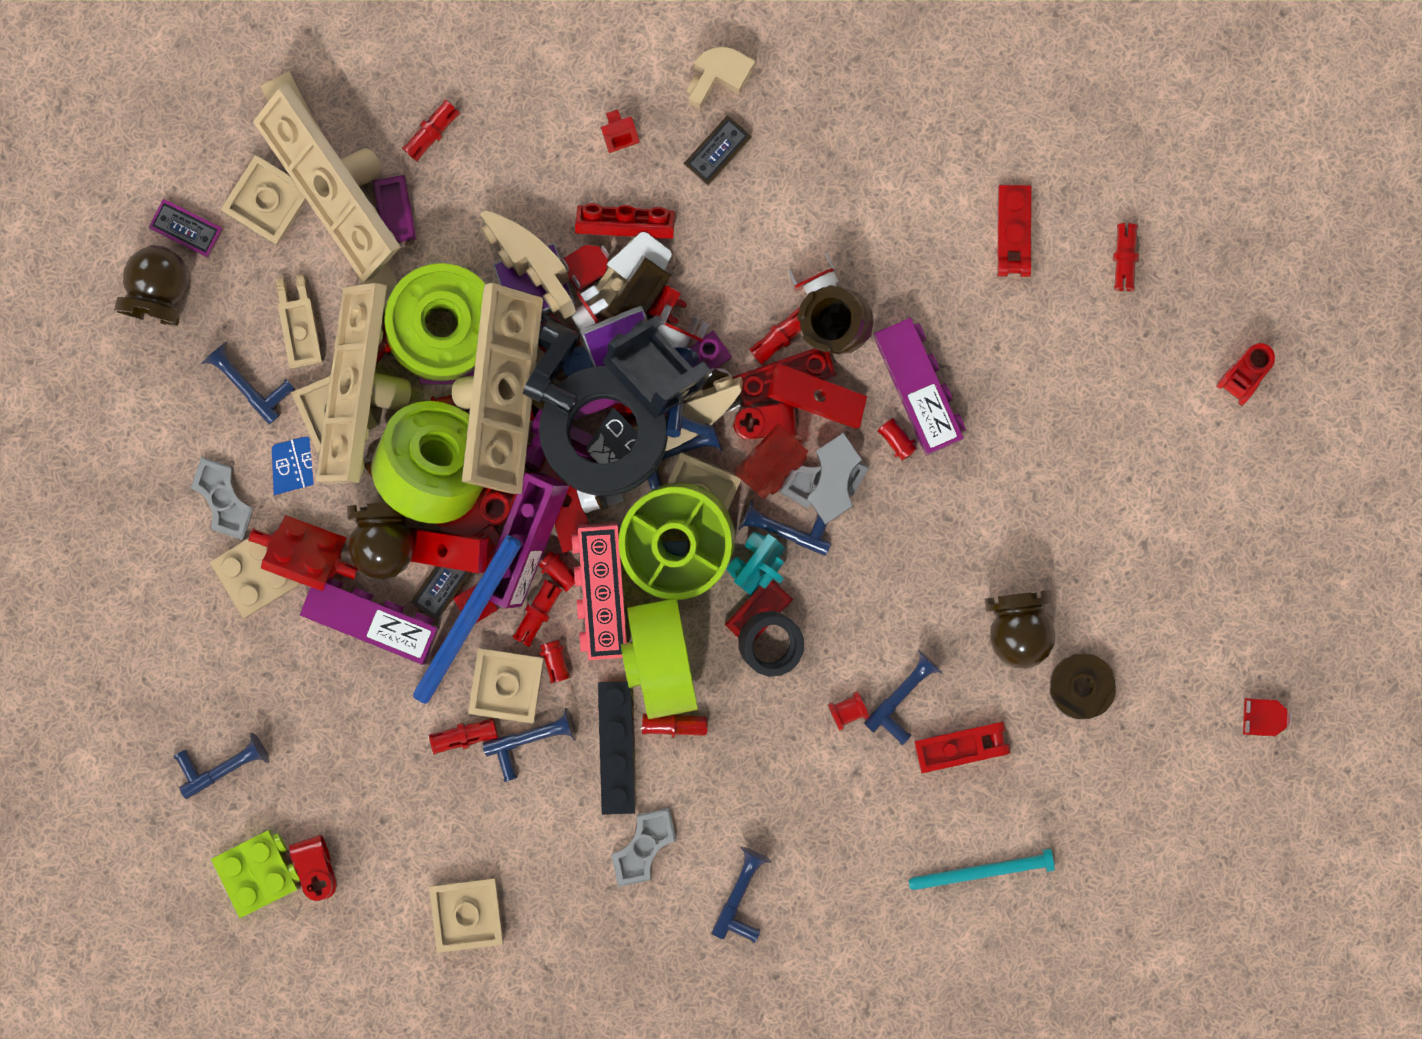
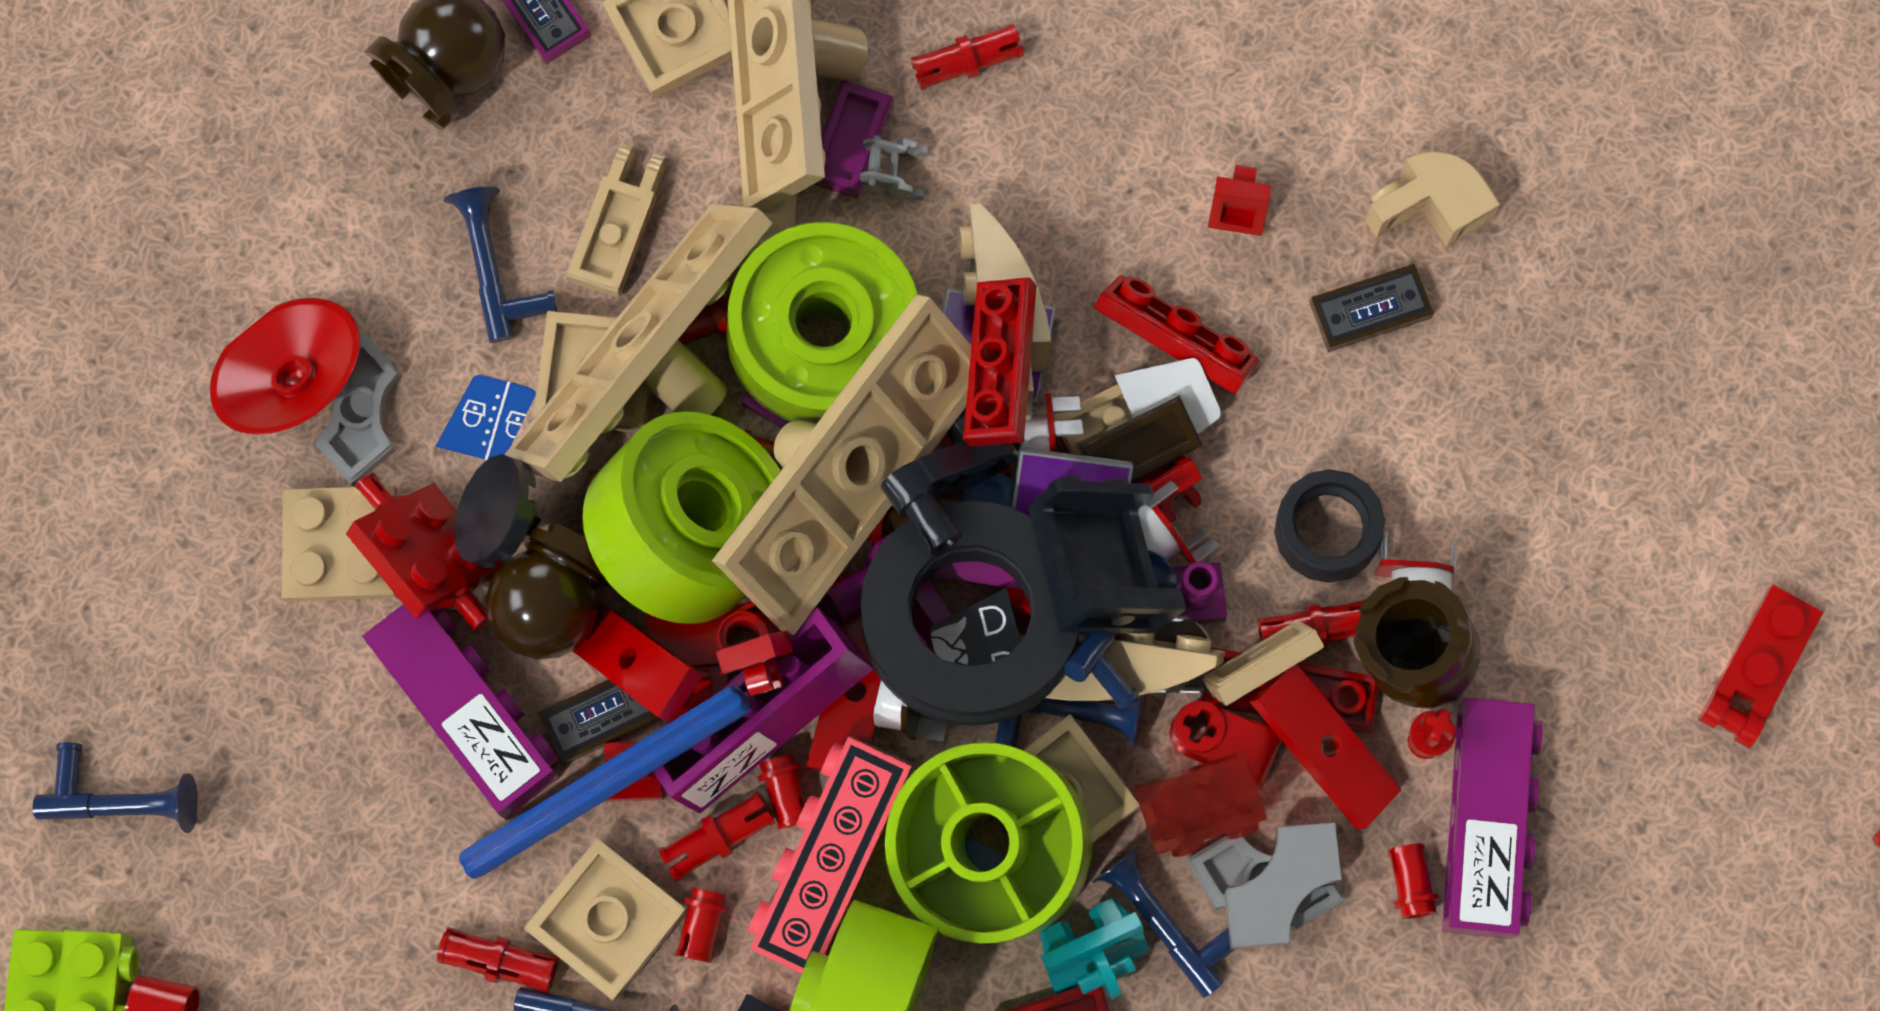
camera: 30 degrees right, 10 degrees down
(172, 498) = (285, 366): none -> red hat
(330, 514) = (494, 511): none -> black tile
(432, 223) = (894, 185): none -> light grey piece
(511, 516) = (757, 660): none -> red tile
(554, 309) = (1000, 387): none -> red tile
(586, 265) = (1083, 364): red piece -> none
(758, 255) = (1339, 485): none -> black tyre
(763, 372) = (1262, 662): none -> tan tile
(867, 360) = (1431, 734): none -> red axle

